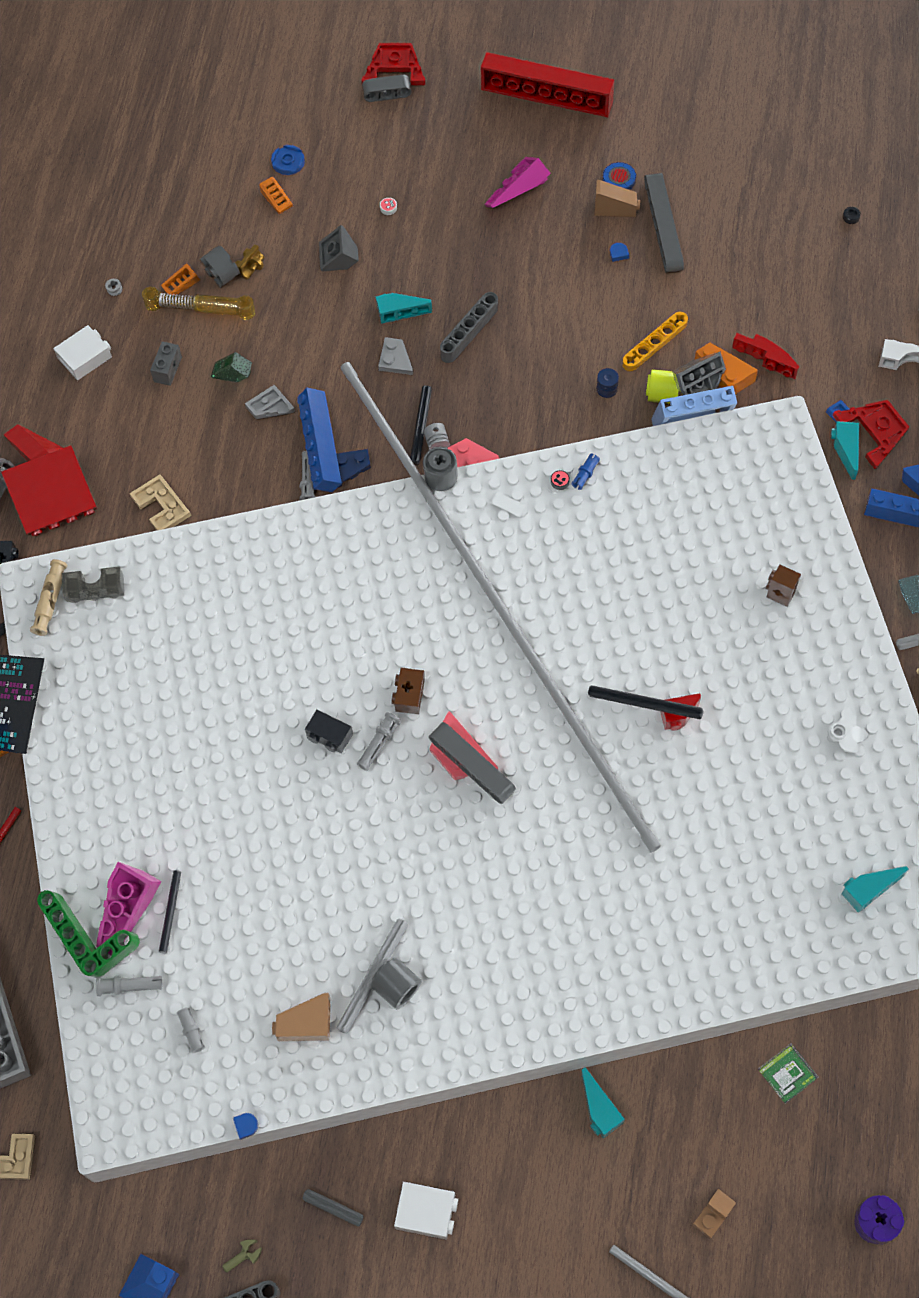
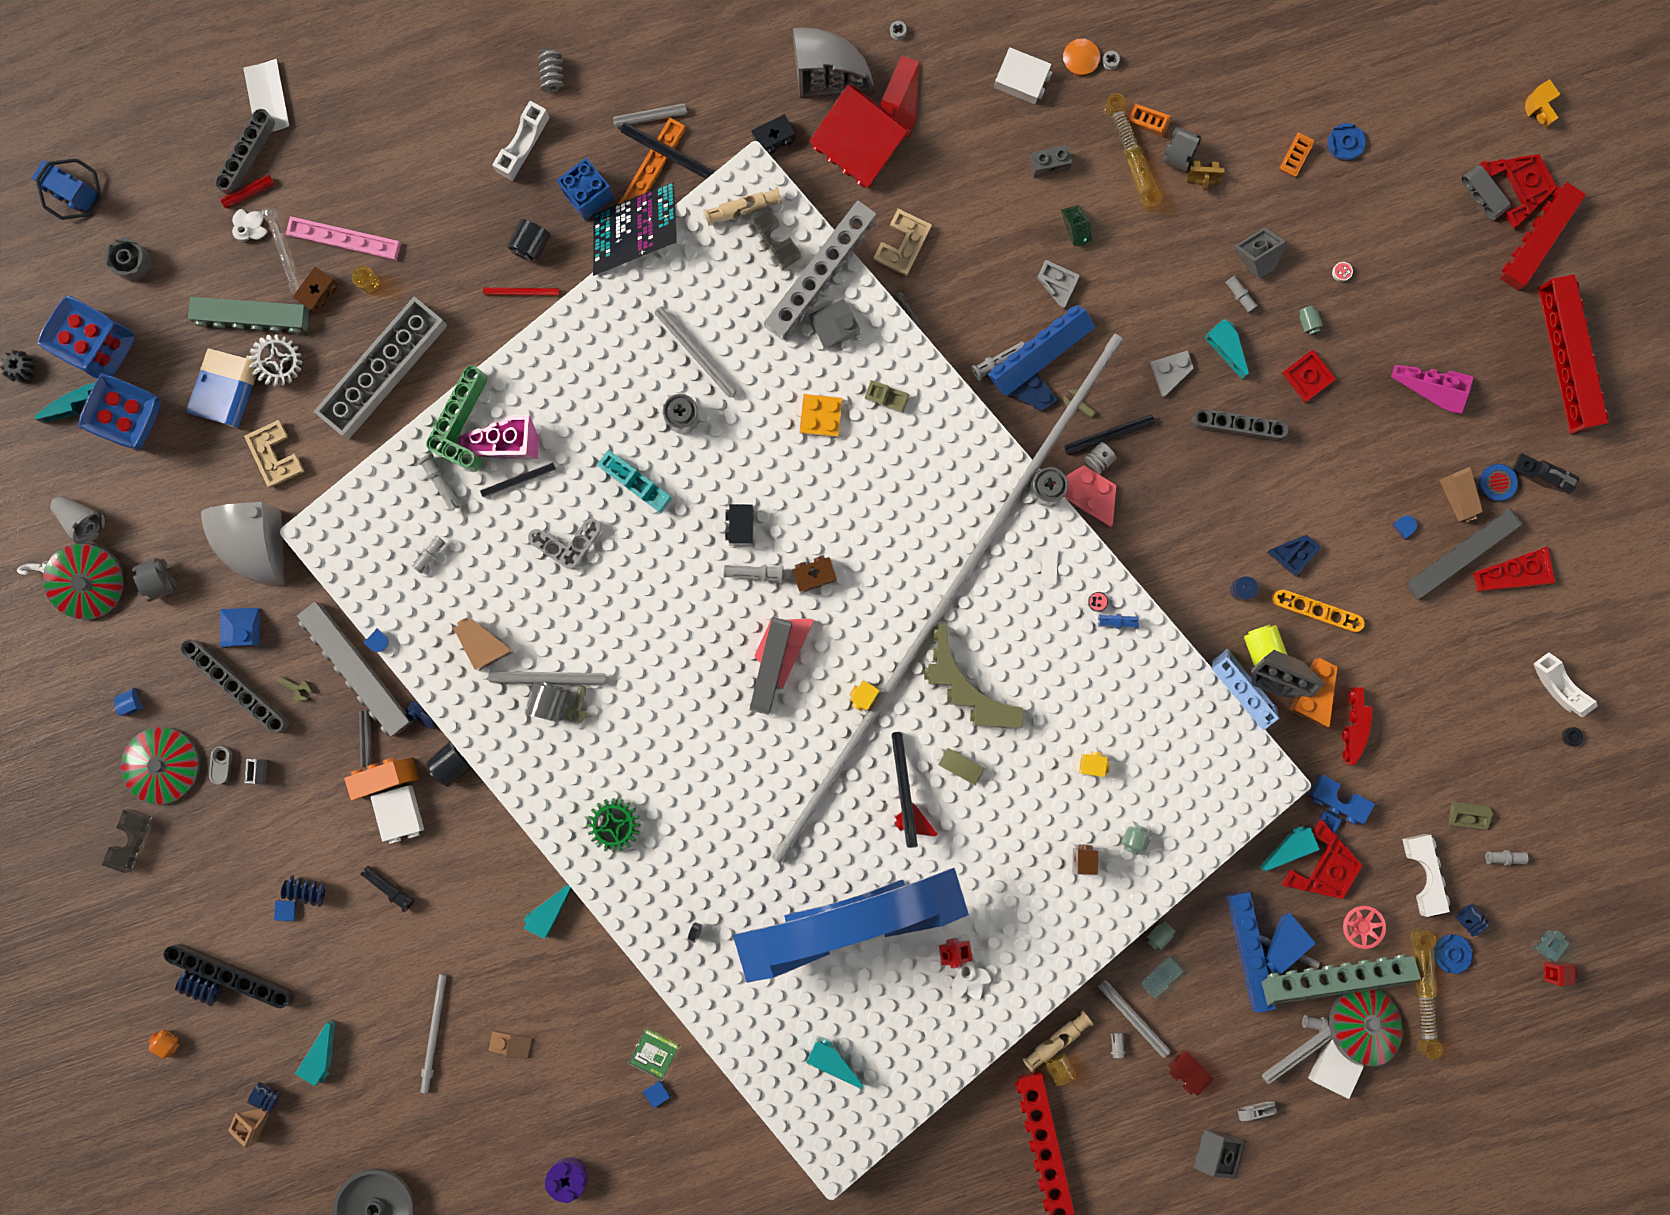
camera: 60 degrees right, 20 degrees up
(64, 1226) = (247, 540): none -> light grey brick
(96, 306) = (1081, 57): none -> orange dish
(149, 698) = (695, 351): none -> light grey axle
(168, 618) = (858, 214): none -> light grey brick
(198, 571) = (834, 324): none -> dark grey slope
(201, 740) = (688, 420): none -> dark grey piece
(234, 806) = (634, 481): none -> teal slope
(257, 1181) = (354, 669): none -> light grey brick
(261, 900) = (563, 550): none -> light grey beam
(270, 621) = (820, 415): none -> light orange plate
(287, 561) = (886, 396): none -> olive slope
(337, 1137) = (416, 712): none -> dark blue plate
(342, 27) = (1539, 104): none -> light orange brick
(362, 280) = (1241, 294): none -> light grey pin
(377, 436) = (1083, 407): none -> olive bar
(380, 1209) = (381, 777): none -> orange wedge
(403, 1130) = (447, 765): none -> black piece
(414, 242) = (1310, 320): none -> sand green brick
(415, 960) = (578, 706): none -> olive bar
(443, 68) = (1542, 236): none -> red brick
(458, 264) = (1308, 376): none -> red tile
(505, 1255) = (394, 893): none -> black pin
(541, 700) = (863, 695): none -> yellow brick
(555, 981) = (616, 834): none -> green gear
(581, 618) = (945, 672): none -> olive arch
(598, 336) = (1295, 553): none -> dark blue wing
(630, 142) = (1545, 474): none -> black plate
(647, 650) = (961, 766): none -> olive slope
(688, 954) = (694, 932): none -> black tile
(699, 193) = (1520, 572): none -> red wing
(700, 544) = (1094, 764): none -> yellow brick
(739, 844) = (818, 930): none -> blue piece
(783, 541) = (1136, 839): none -> sand green head
(807, 204) = (1557, 682): none -> white arch
(816, 730) = (951, 953): none -> red brick
(829, 1089) = (656, 1094): none -> blue tile
(836, 385) = (1325, 792): none -> blue arch
(878, 577) = (1160, 936): none -> sand green brick
(882, 310) = (1470, 815): none -> olive slope

